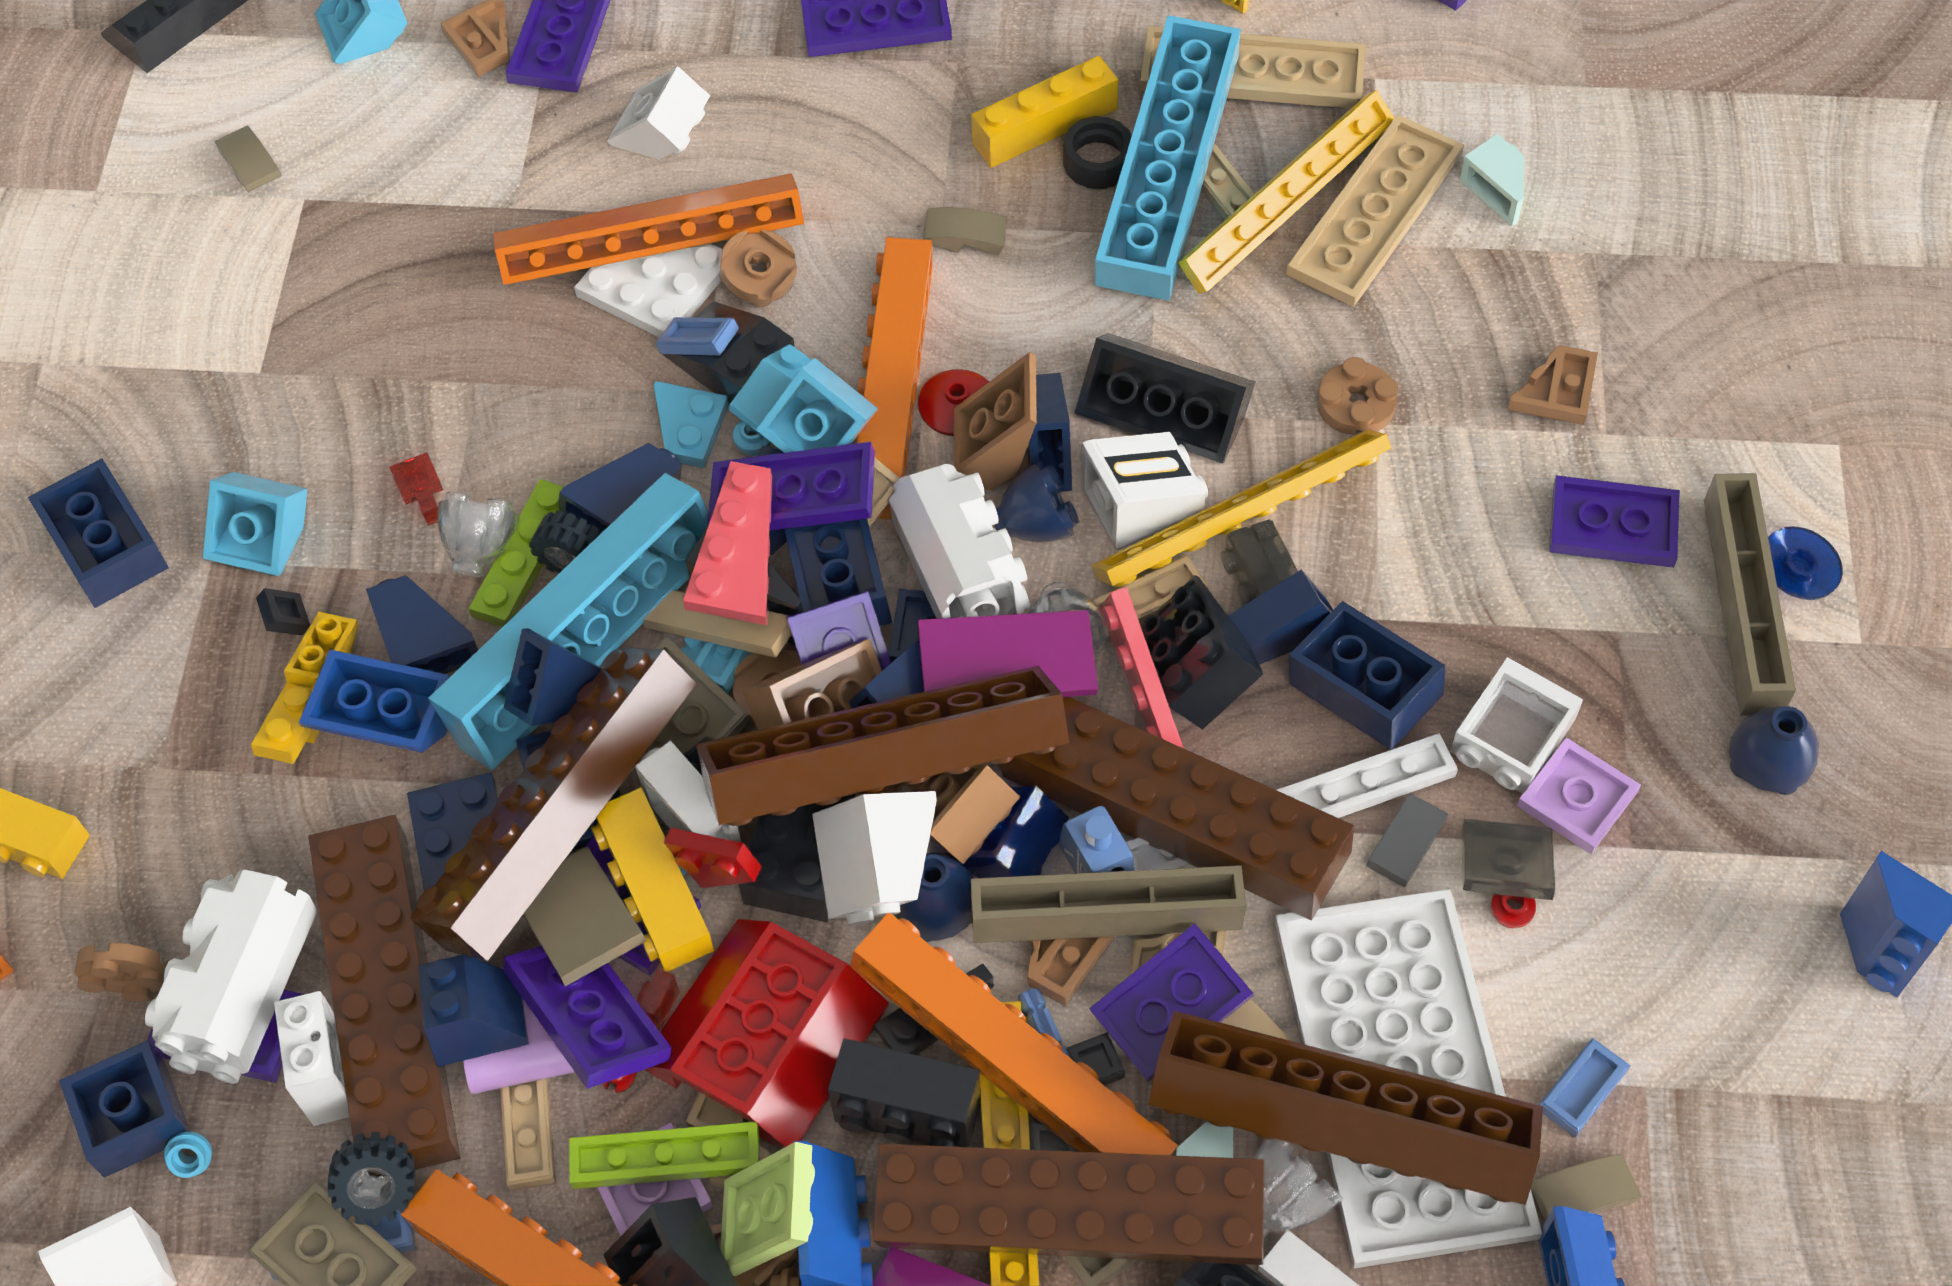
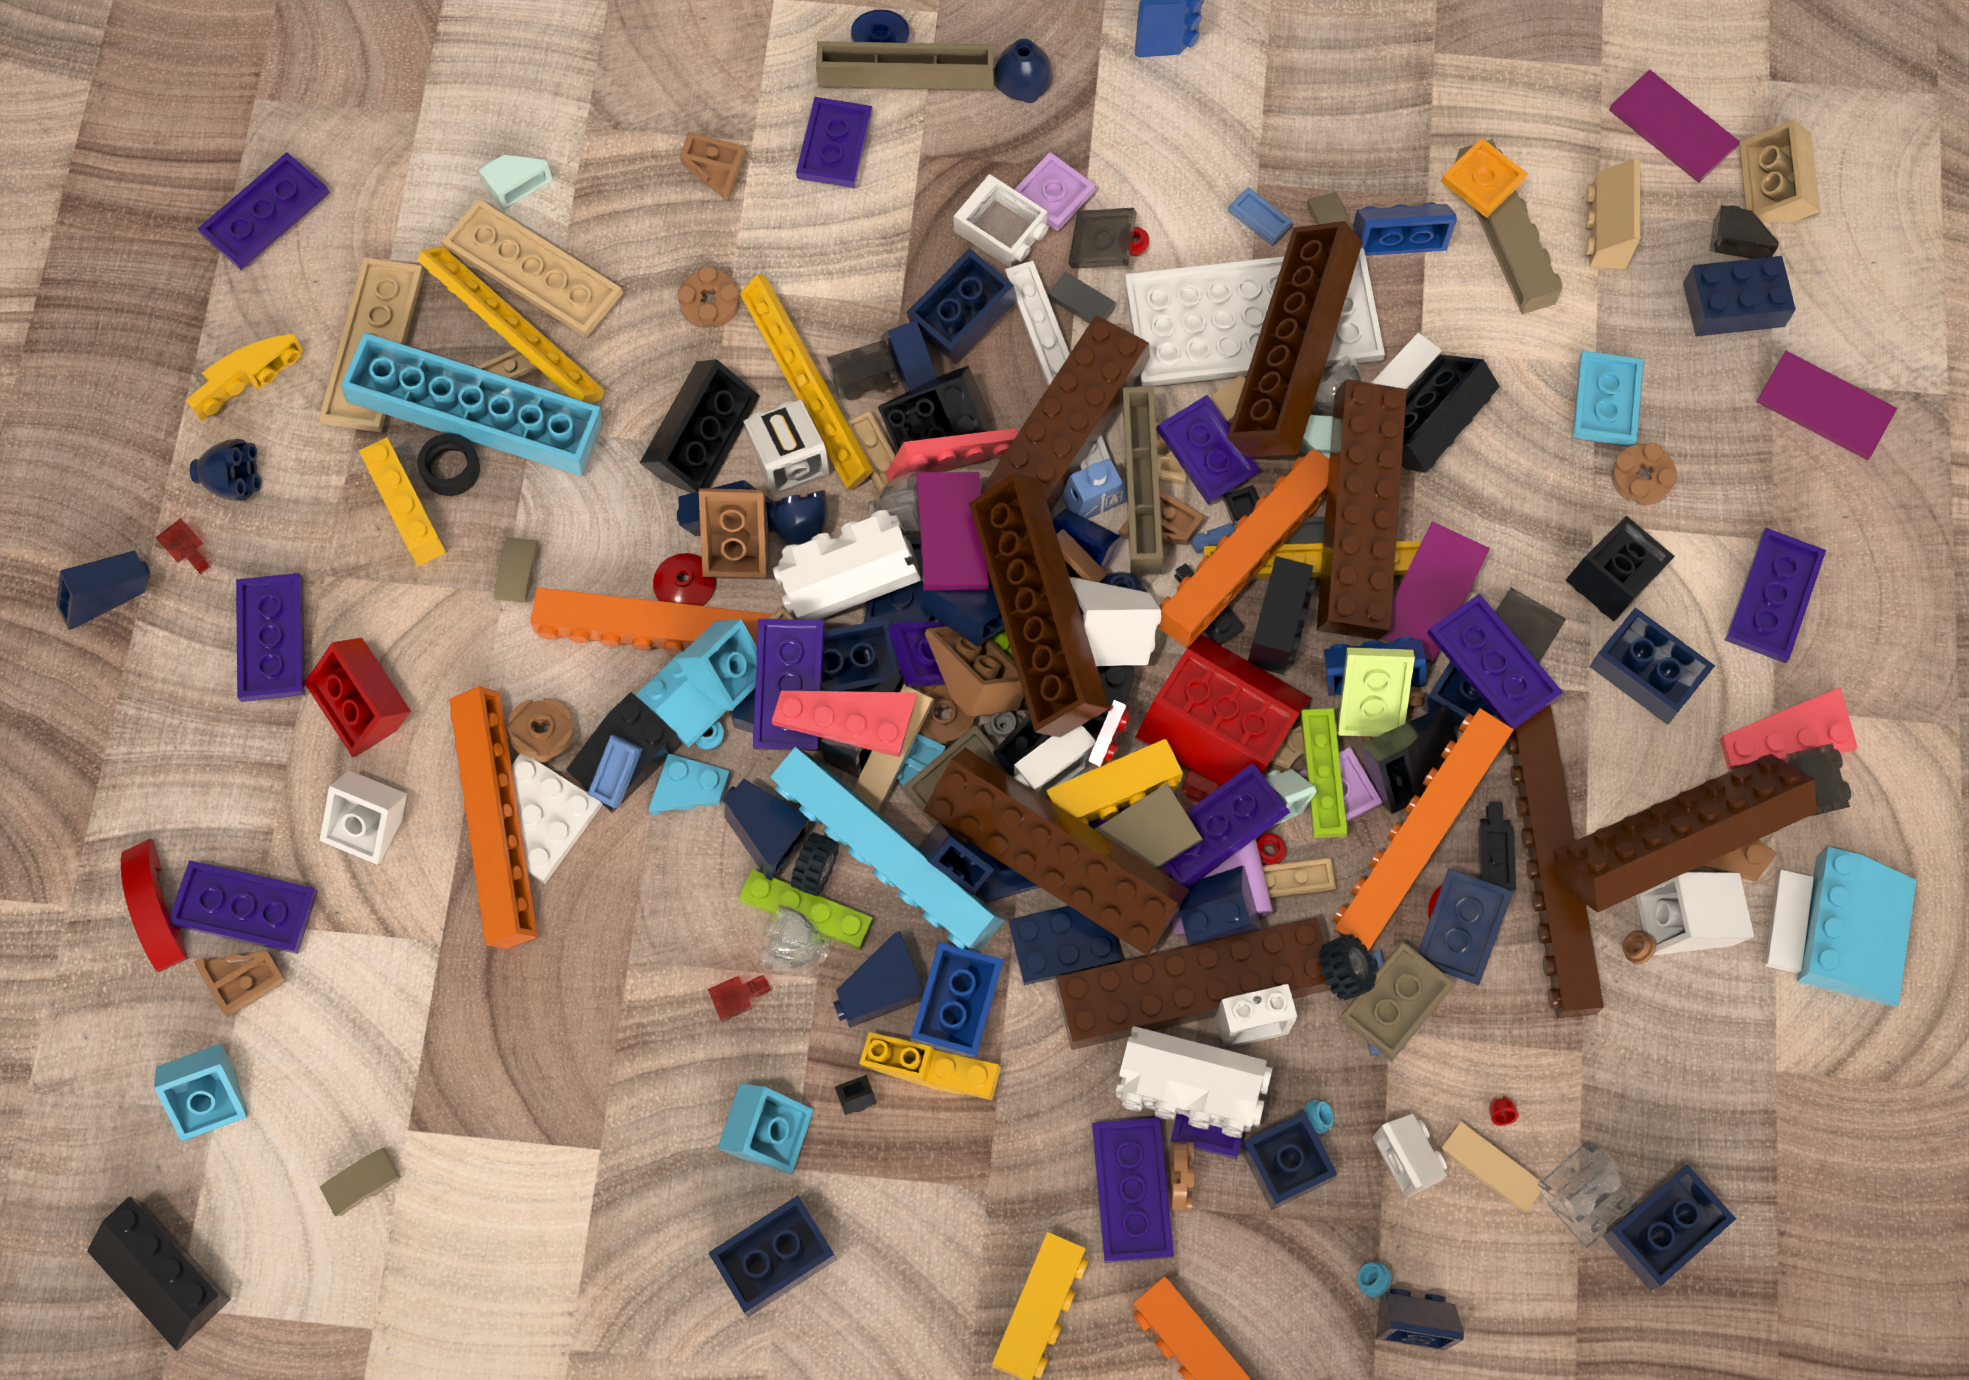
camera: 90 degrees left, 10 degrees up
(128, 912) = (1132, 1190): none -> dark purple plate
(563, 1085) = (1274, 841): none -> red plate
(639, 1101) = (1292, 790): none -> light aqua slope
(805, 99) = (356, 695): none -> red slope

